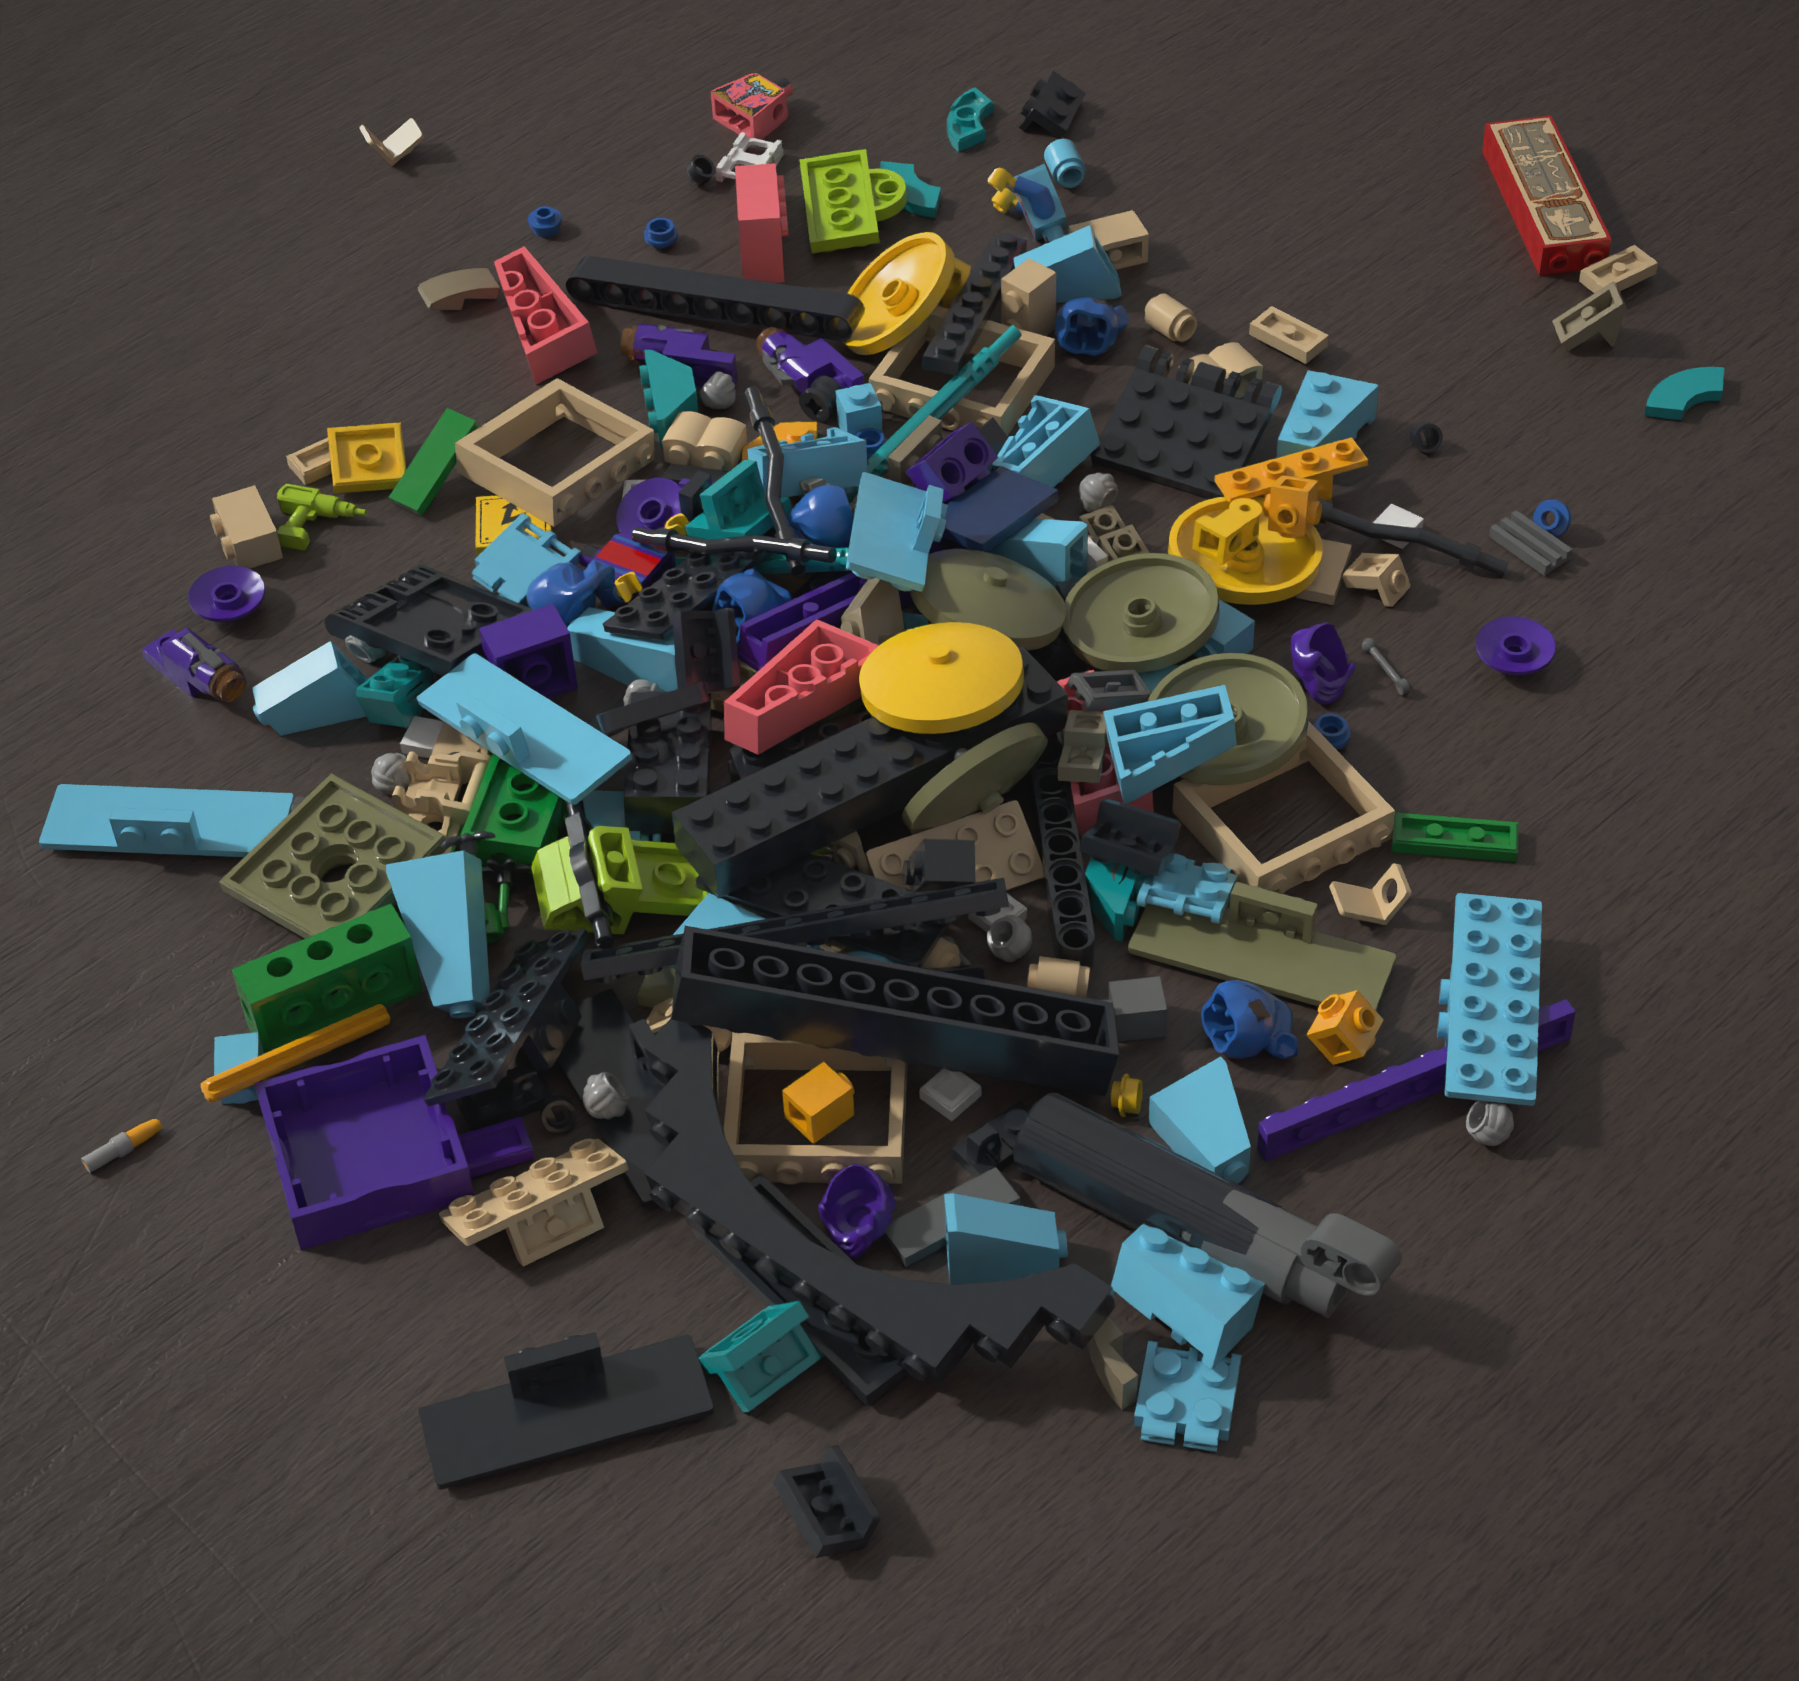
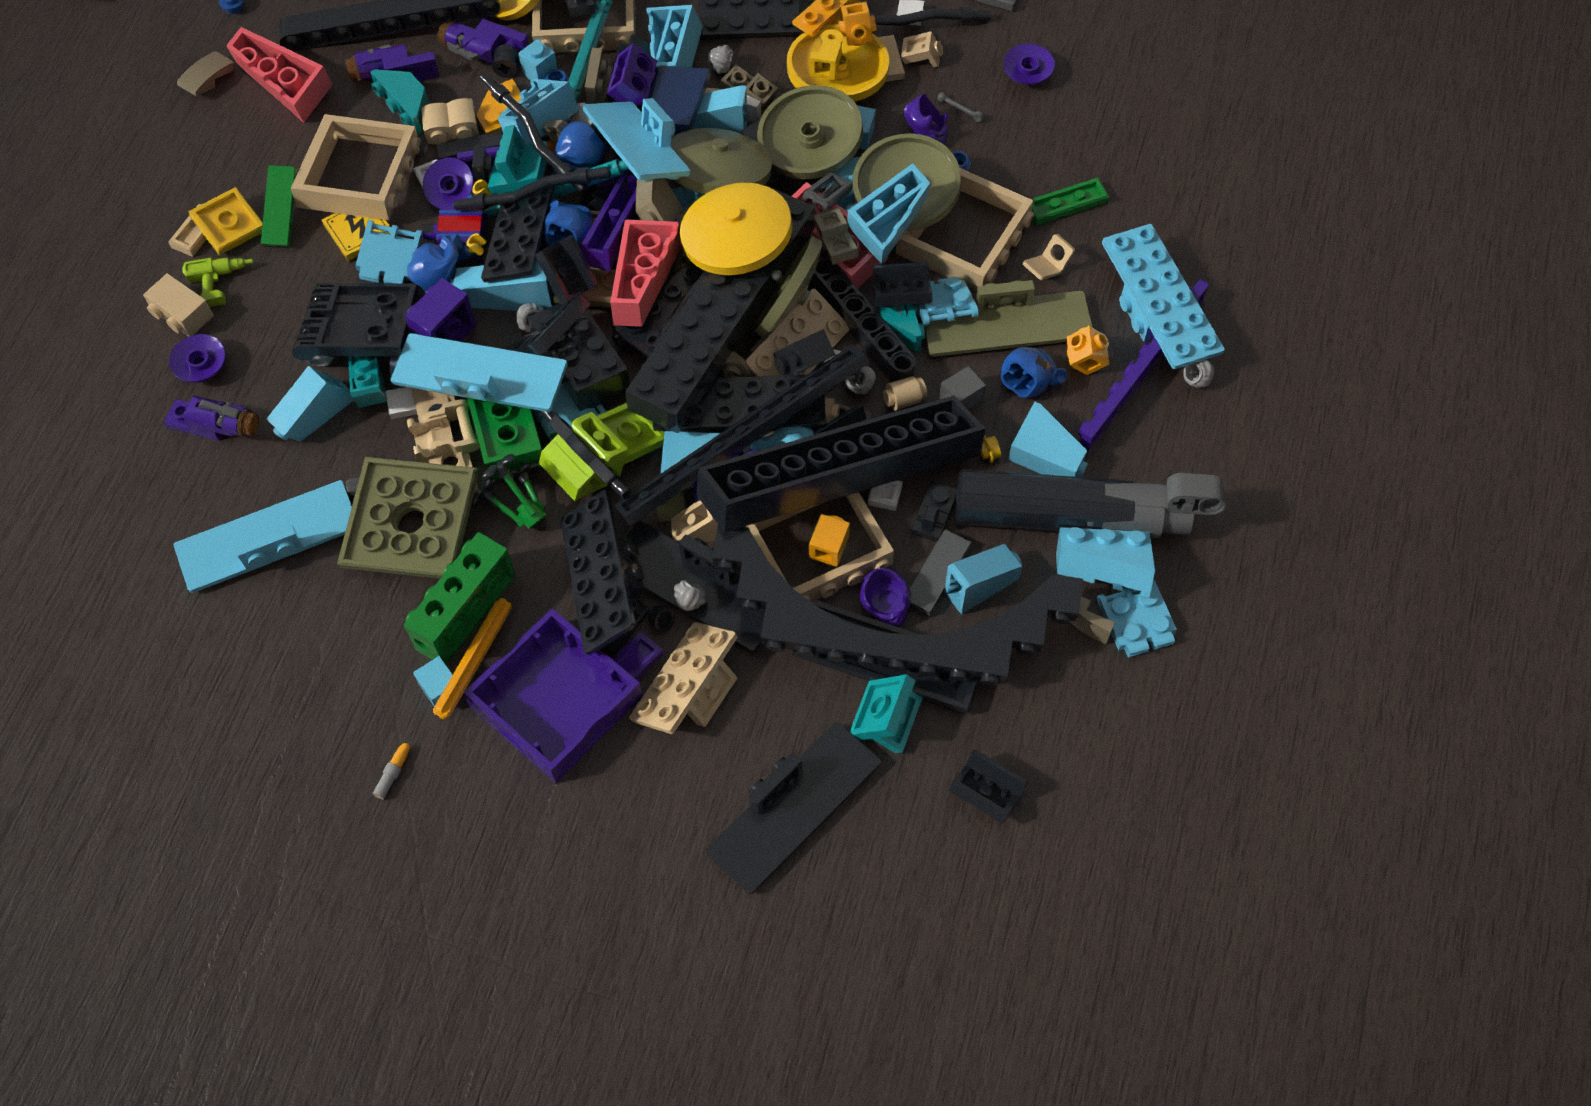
camera: 30 degrees left, 15 degrees up
(390, 772) = (398, 437): light grey piece -> none
(446, 920) = (512, 521): medium azure slope -> none
(718, 392) = (434, 81): light grey piece -> none

